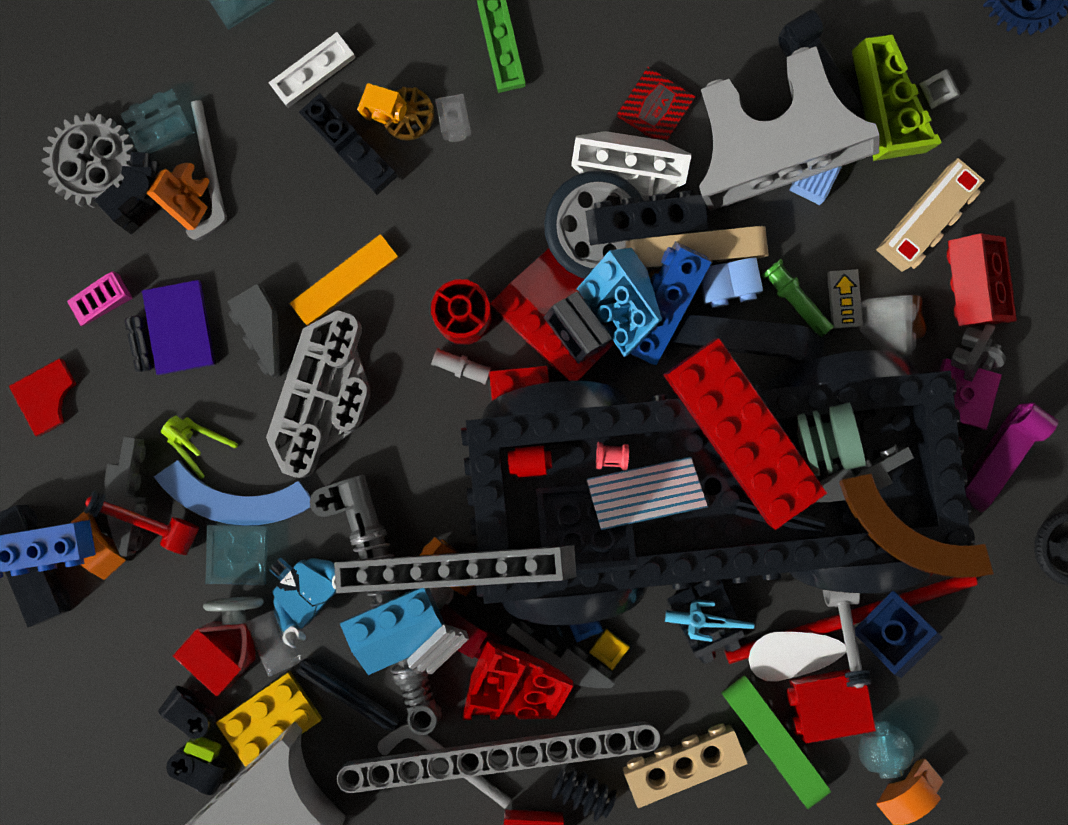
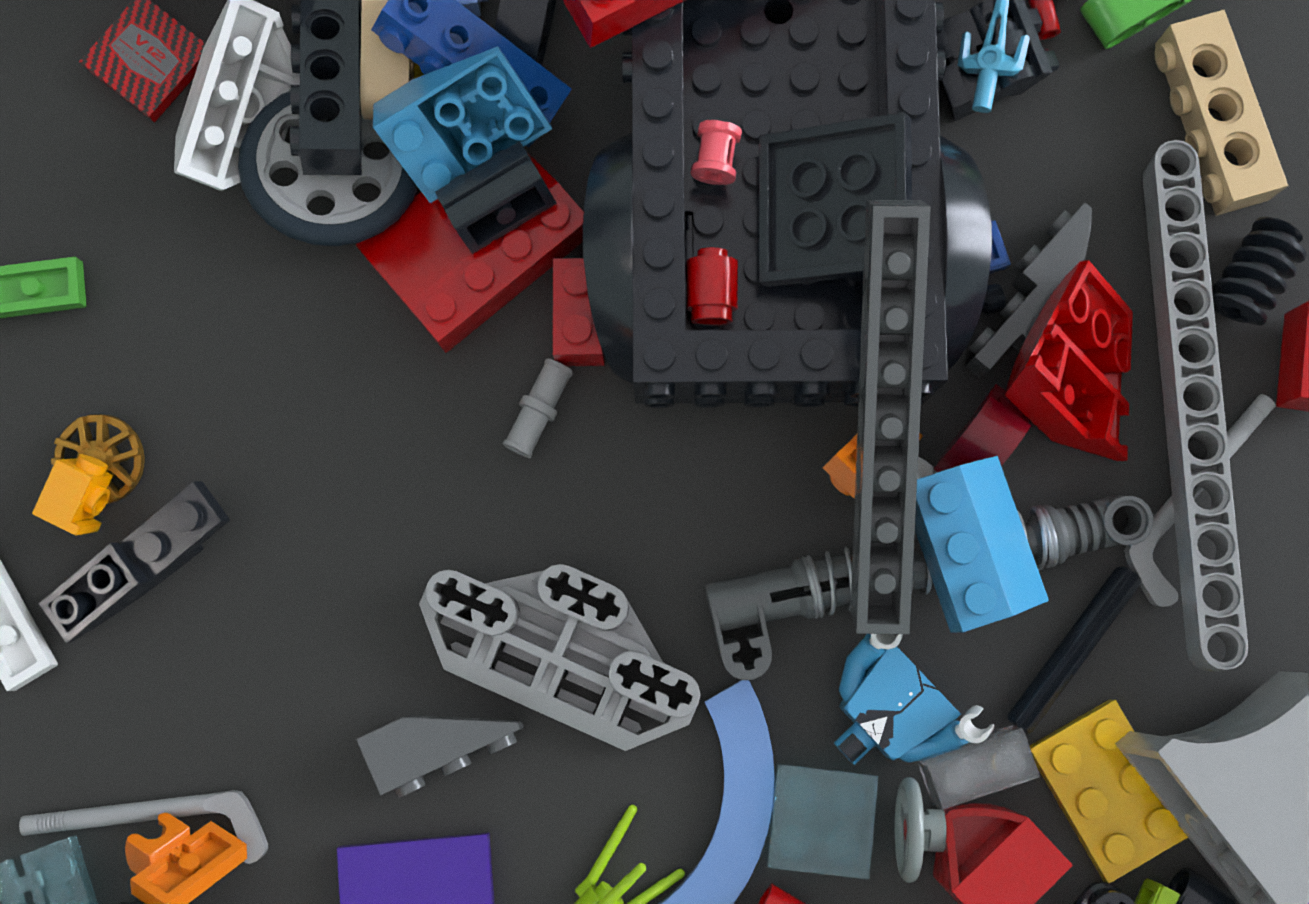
camera: 80 degrees left, 5 degrees down
(344, 280) = (369, 593): light orange tile -> none
(437, 649) = (1013, 476): light grey tile -> none
(453, 117) = (115, 380): clear brick -> none
(461, 311) = (446, 388): red cylinder -> none
(609, 649) = (1024, 215): yellow tile -> none
(646, 493) = (783, 102): white sticker -> none

